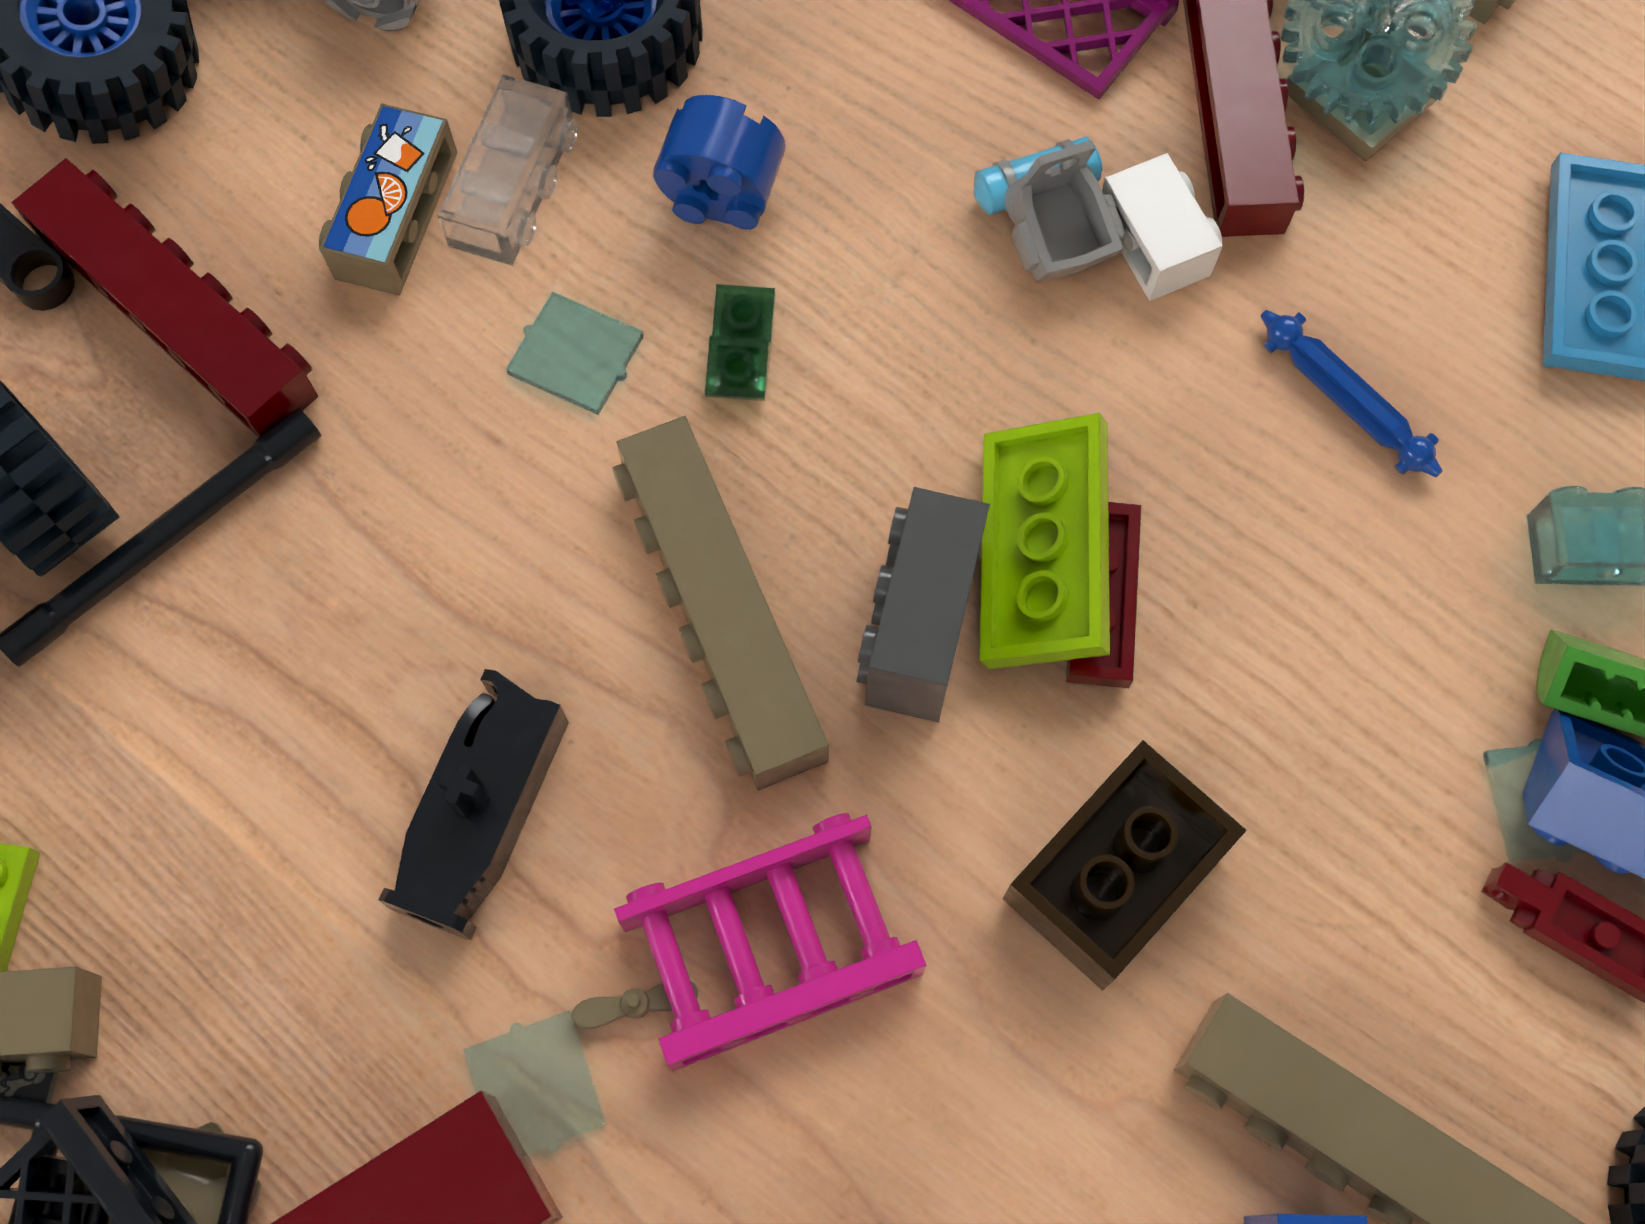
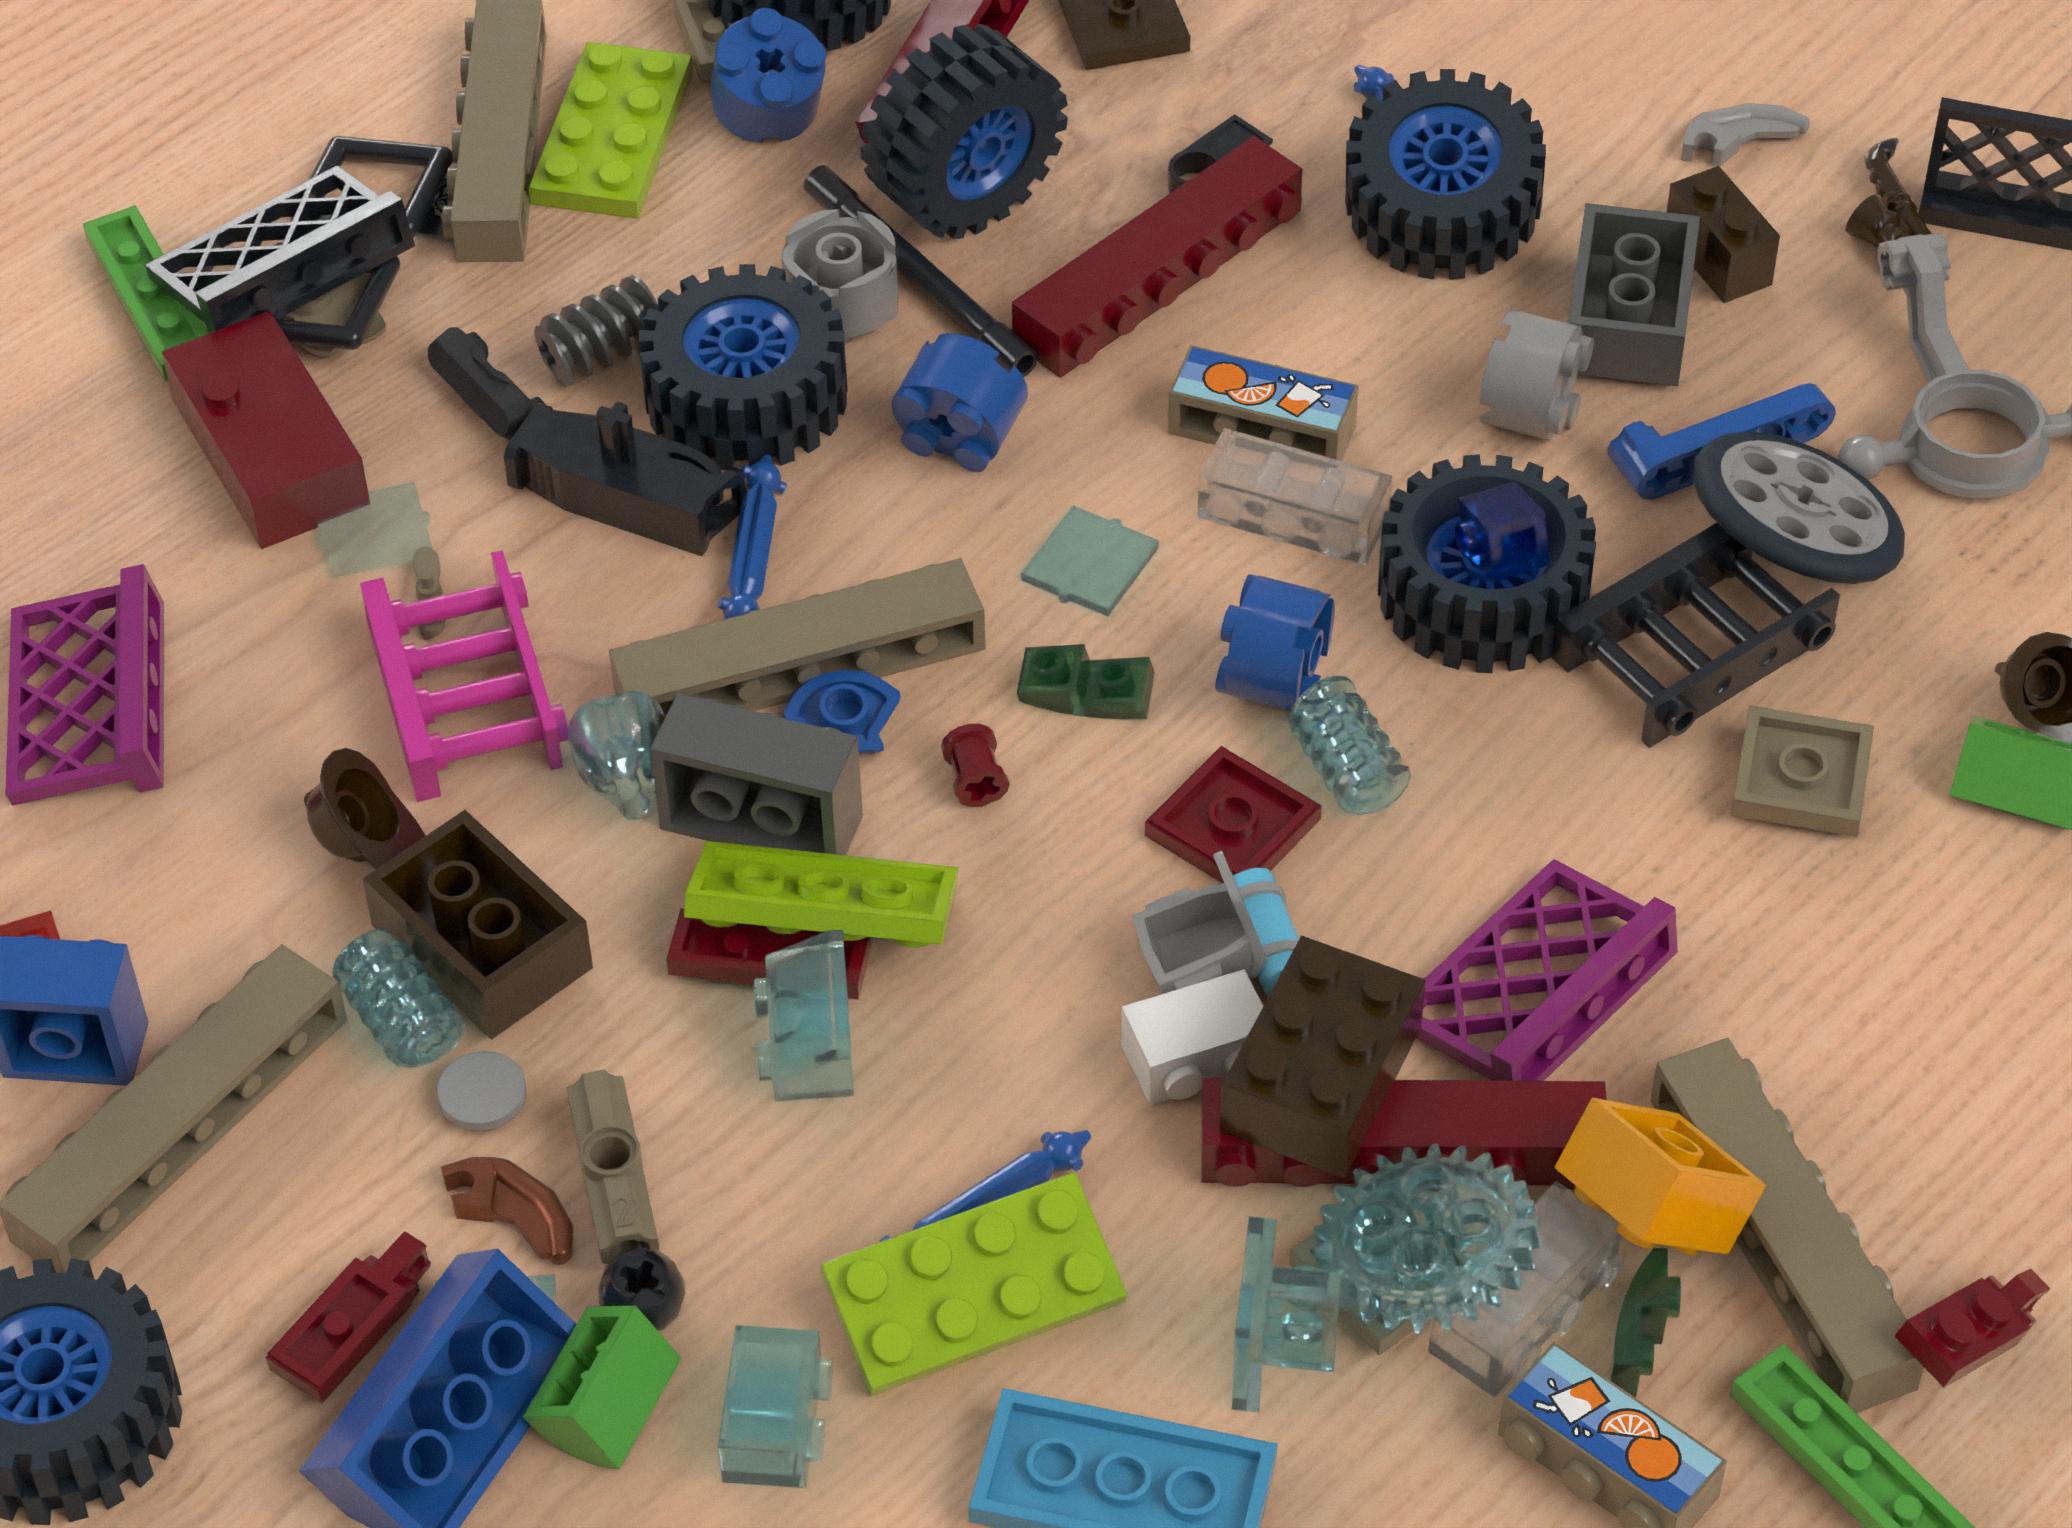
camera: 95 degrees right, 20 degrees down
(182, 599) = (850, 262): none -> light grey brick
(246, 858) = (594, 328): none -> dark grey piece
(284, 1018) = (488, 392): none -> black piece
(337, 754) = (744, 365): none -> black wheel
(389, 461) = (958, 401): none -> blue brick
(567, 665) = (752, 538): none -> blue wheel
(793, 555) = (848, 702): none -> blue animal
(825, 113) = (1348, 746): none -> clear light blue piece
(859, 427) = (978, 775): none -> dark red bush
(884, 748) = (612, 748): none -> clear light blue piece
(895, 218) = (1235, 811): none -> dark red tile
(991, 1008) = (357, 811): none -> dark brown piece
(1219, 523) = (807, 1020): none -> clear light blue slope
(1221, 929) = (397, 999): none -> clear light blue piece
(1224, 94) = (1322, 1056): none -> dark brown brick
(1297, 845) = (481, 1091): none -> light grey piece
(1409, 799) = (513, 1196): none -> copper piece
(1414, 691) = (608, 1140): none -> dark tan piece
(1446, 389) = (972, 1283): none -> lime plate
(1465, 148) = (1281, 1317): none -> clear light blue bracket
(1526, 653) = (641, 1270): none -> black piece

